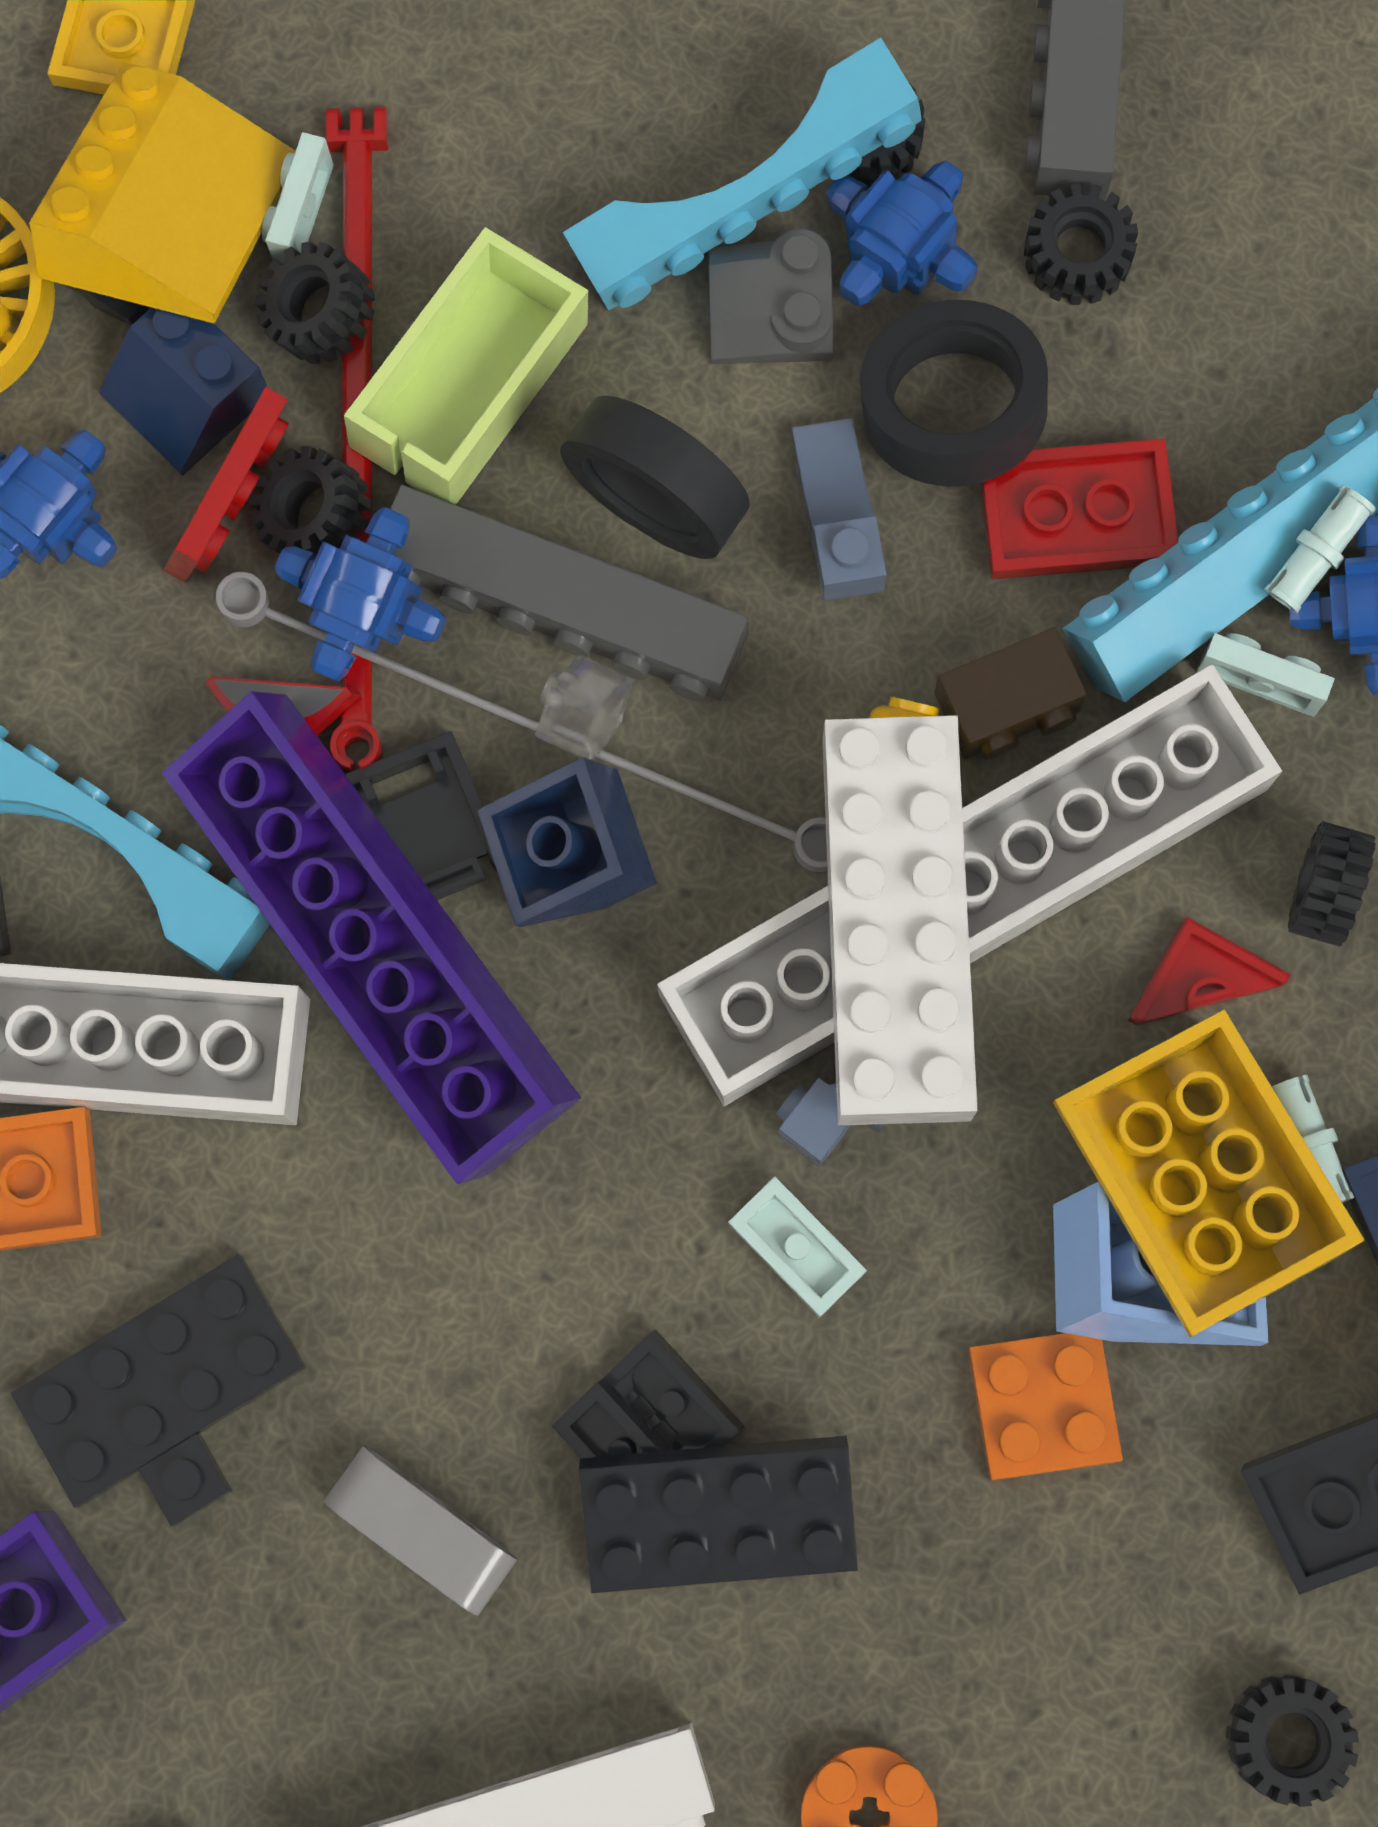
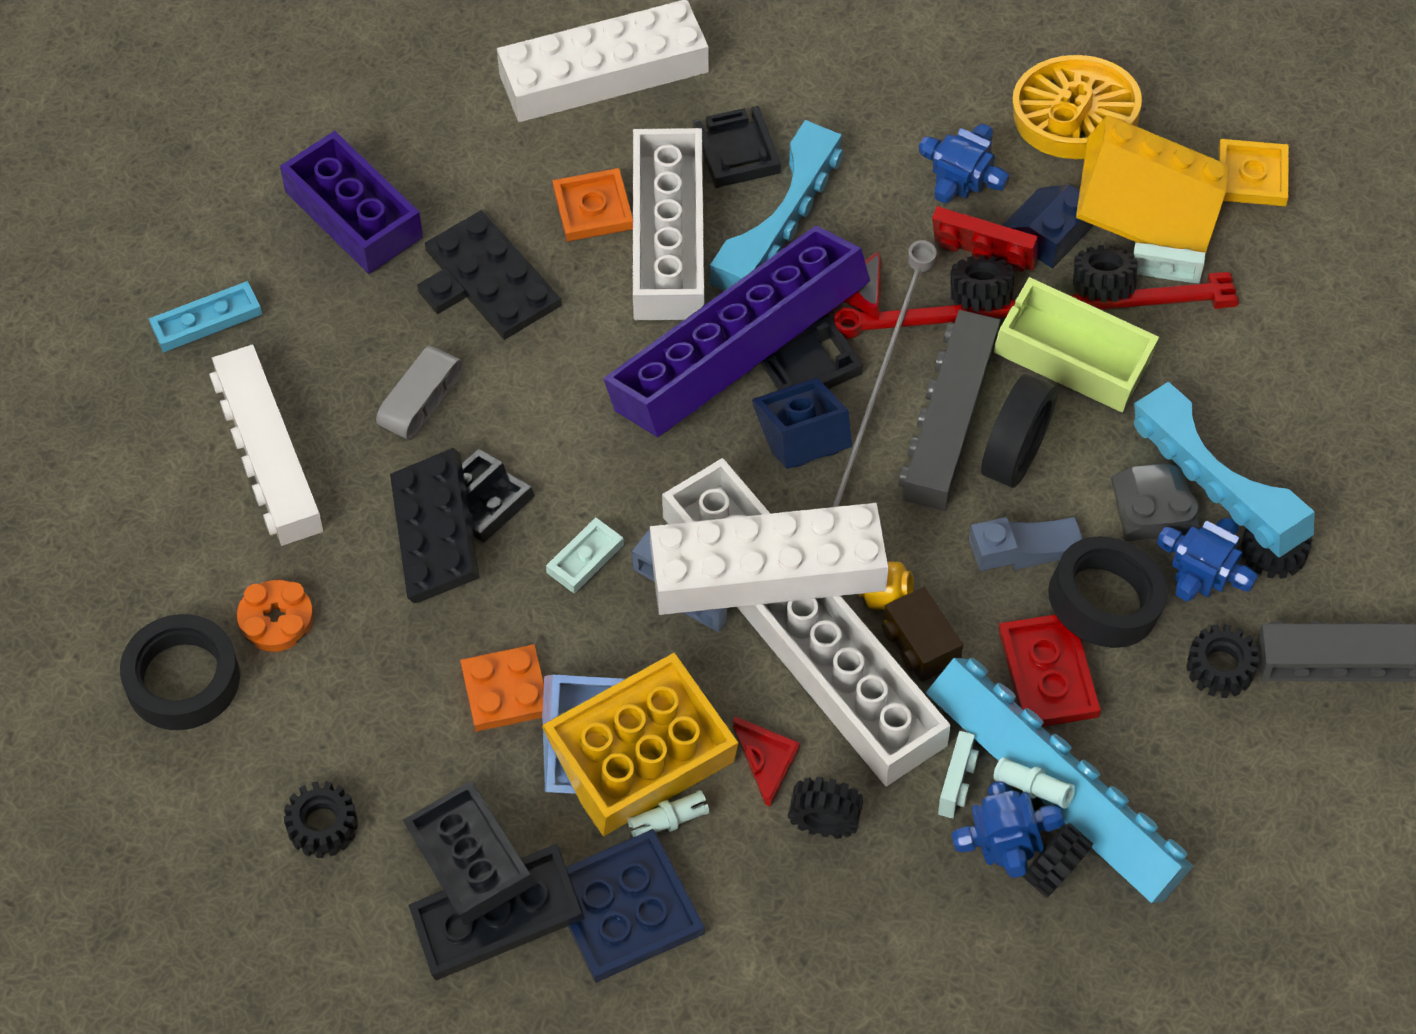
camera: 80 degrees right, 20 degrees down
(360, 594) = (929, 301): blue piece -> none
(583, 707) = (883, 421): clear brick -> none

